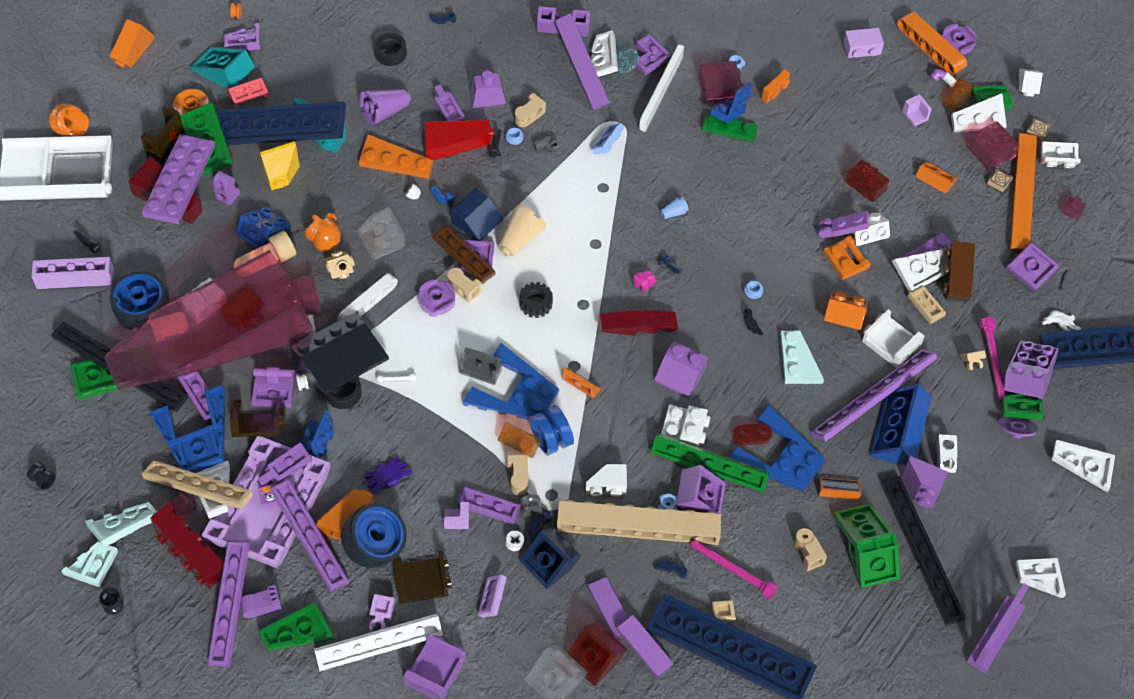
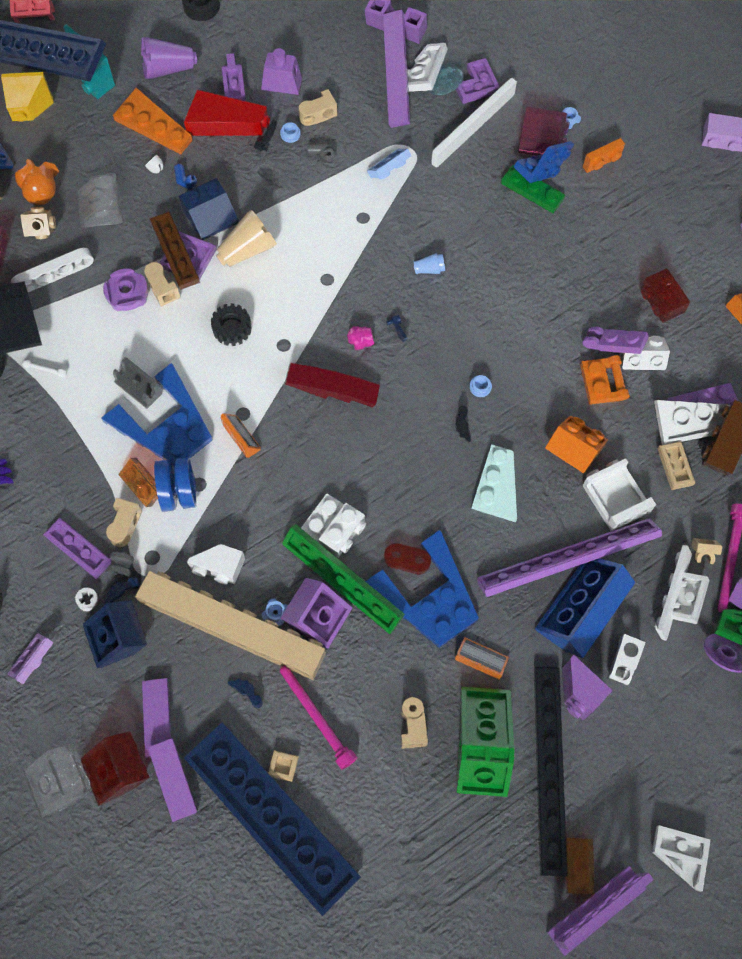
camera: 20 degrees right, 10 degrees up
(457, 517) = (36, 551): lavender panel -> none
(681, 369) = (357, 456): medium lavender slope -> none
(972, 396) = (684, 596): none -> white bracket
(972, 608) = (580, 866): none -> clear orange plate

